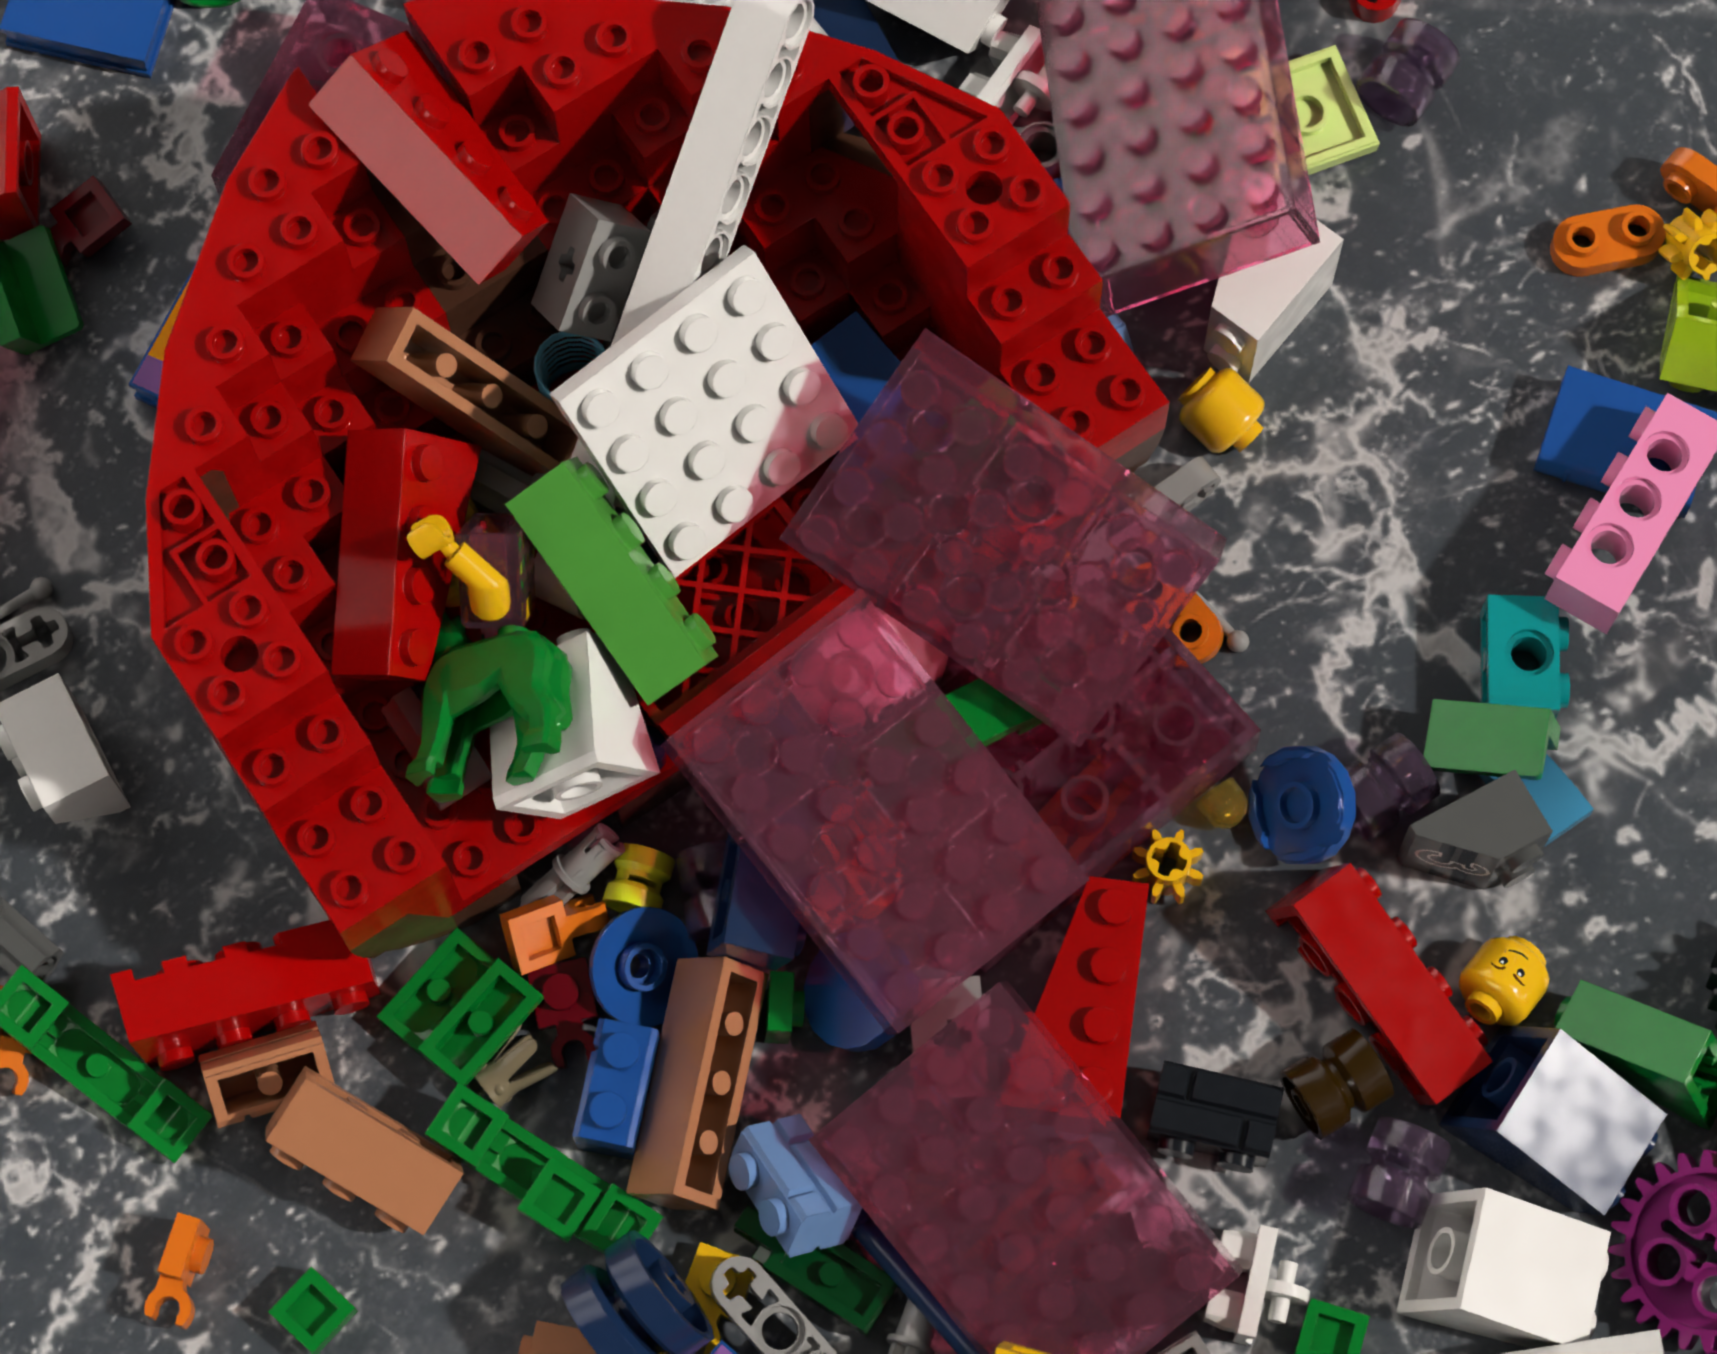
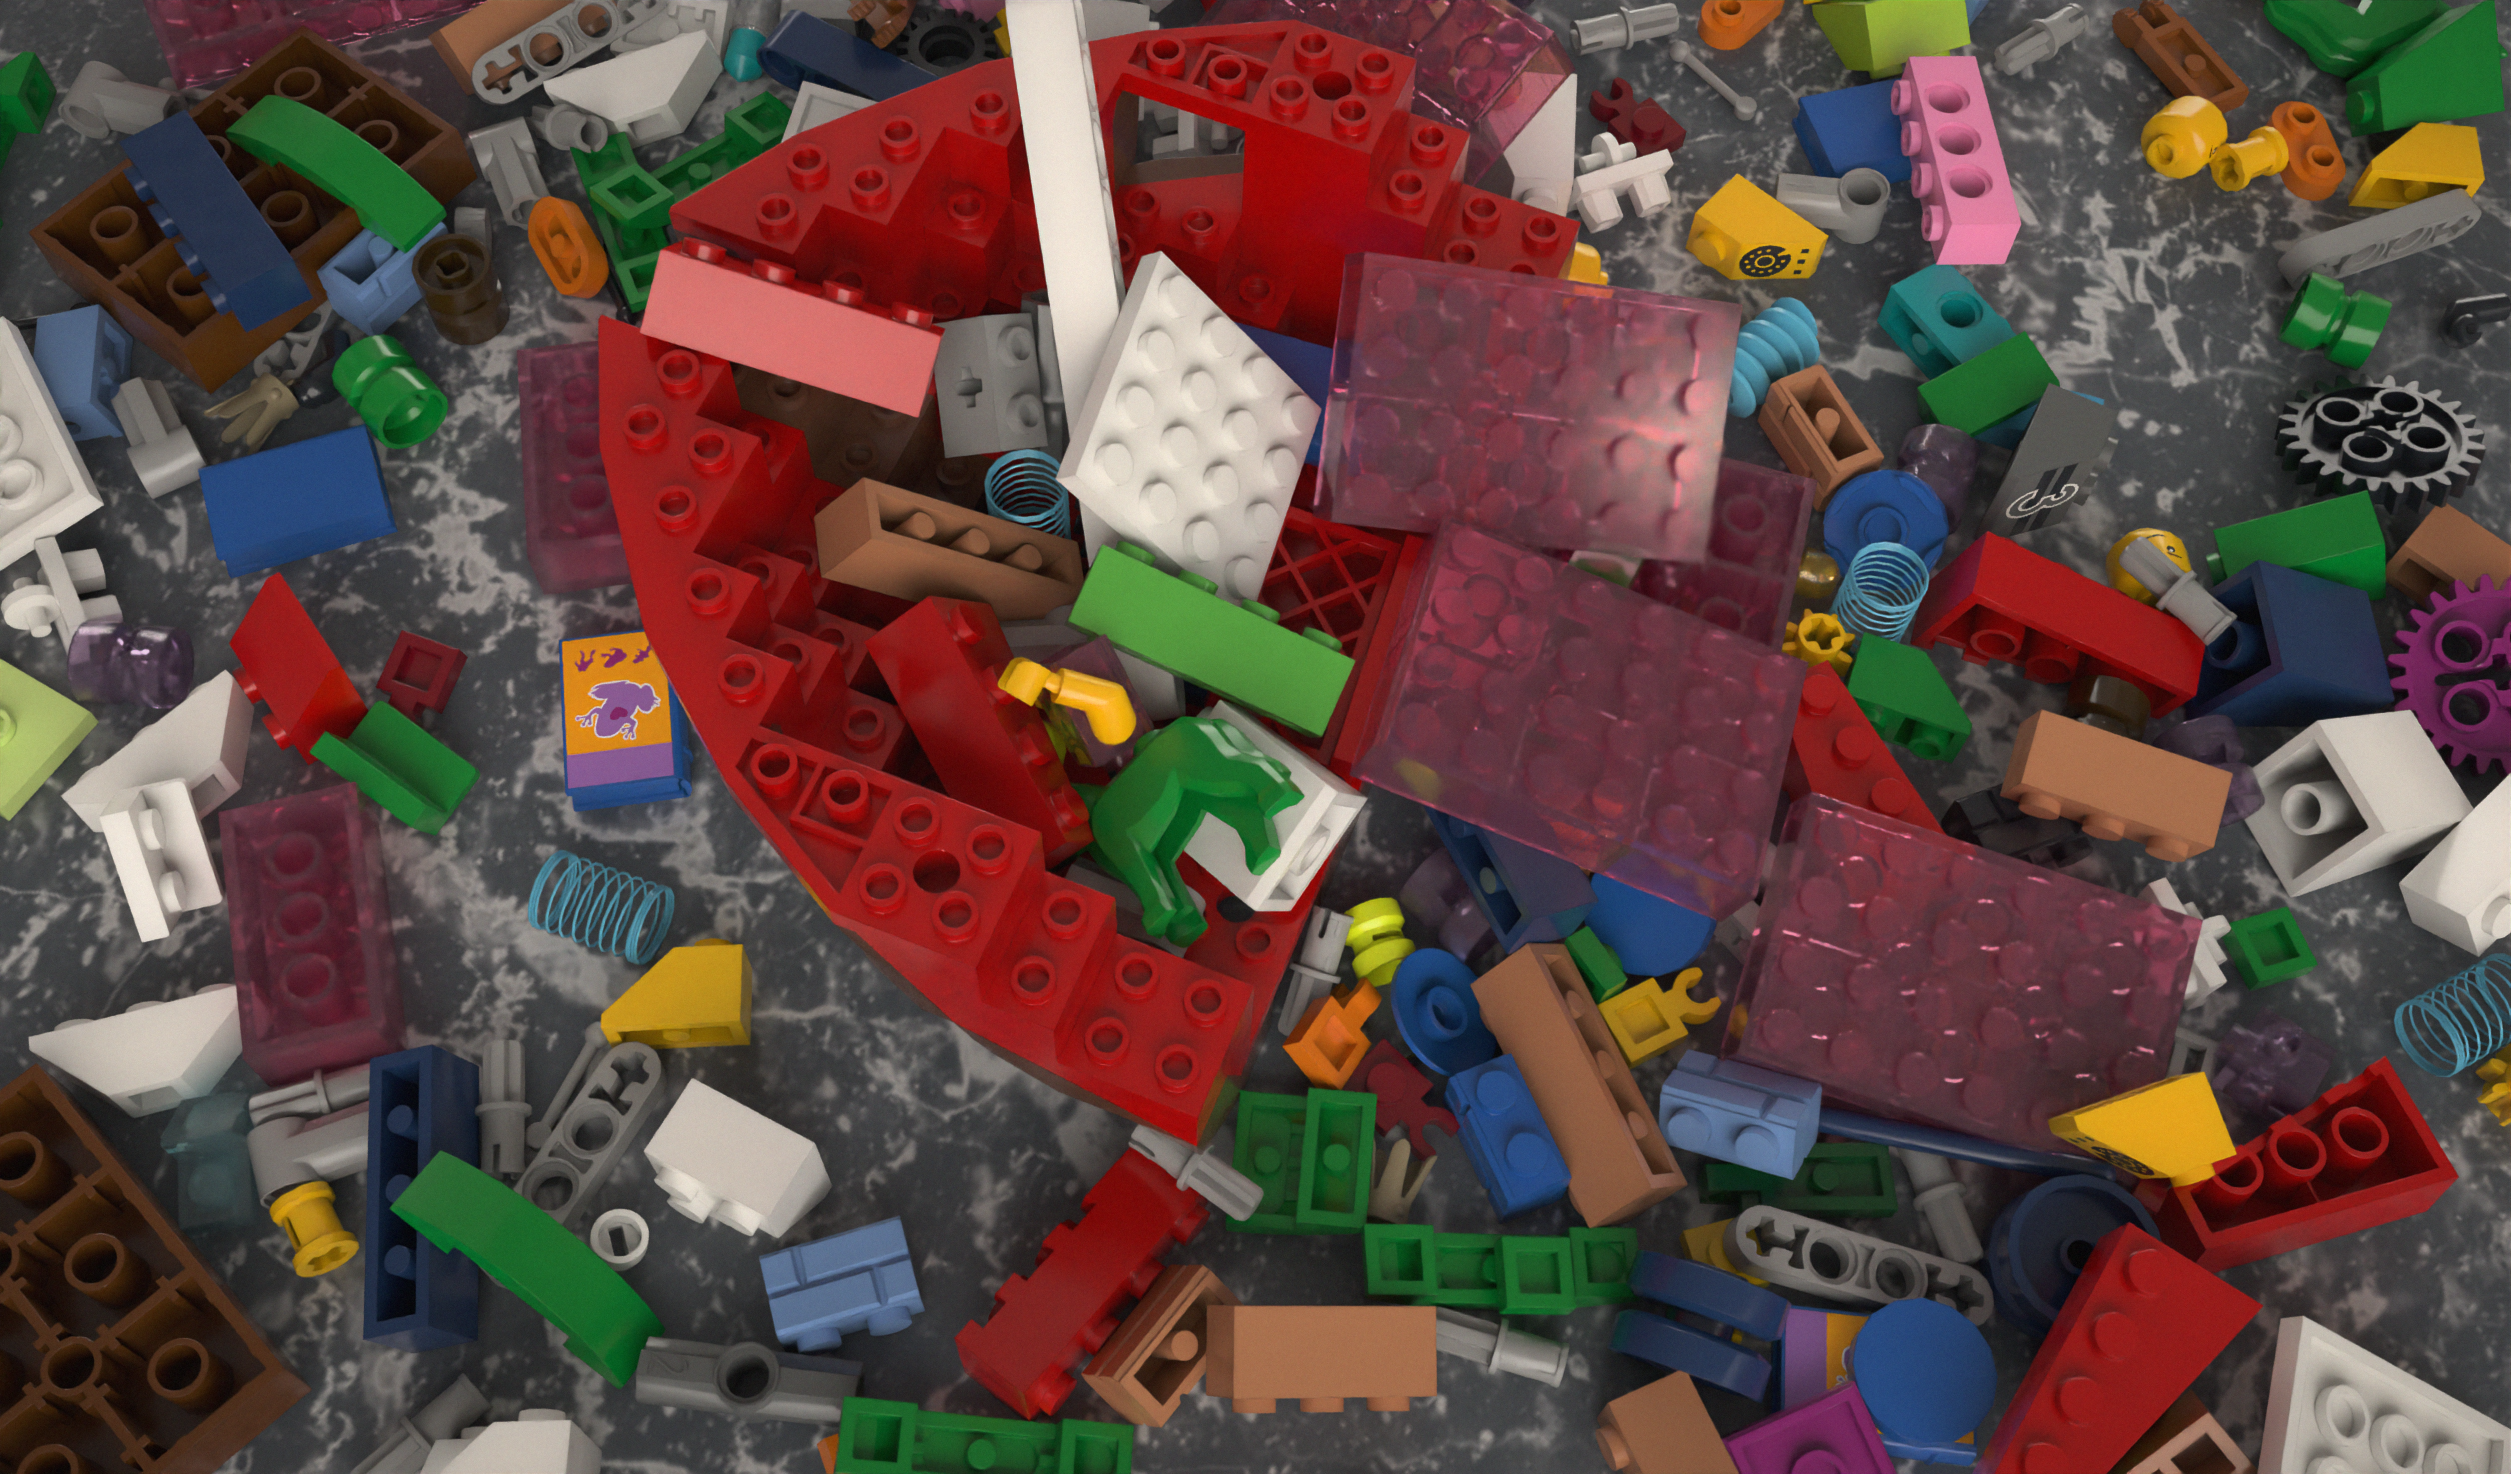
camera: 40 degrees left, 10 degrees down
(83, 886) = (842, 1287): none -> medium blue brick
(107, 602) = (687, 1000): none -> yellow slope
(120, 516) = (571, 880): none -> medium azure piece
(374, 986) = (1203, 1173): none -> light grey axle
(503, 1231) = (1500, 1346): none -> light grey axle
(795, 1071) = (1650, 1021): none -> yellow plate
(1200, 947) = (1906, 699): none -> green slope
(1213, 878) = (1876, 602): none -> medium azure piece
(1279, 1133) = (2116, 786): none -> nougat brick
(1315, 686) = (1817, 432): none -> nougat brick
(1328, 589) = (1769, 349): none -> medium azure piece
(1367, 359) = (1641, 178): none -> white hips
(1413, 307) = (1642, 124): none -> dark red plate
(1418, 469) = (1754, 235): none -> yellow slope
(1476, 199) = (1622, 28): none -> light grey axle
(1486, 1009) = (2176, 590): none -> light grey axle
(1513, 476) = (1847, 205): none -> light grey piece
(1529, 339) = (1743, 106): none -> light grey hinge

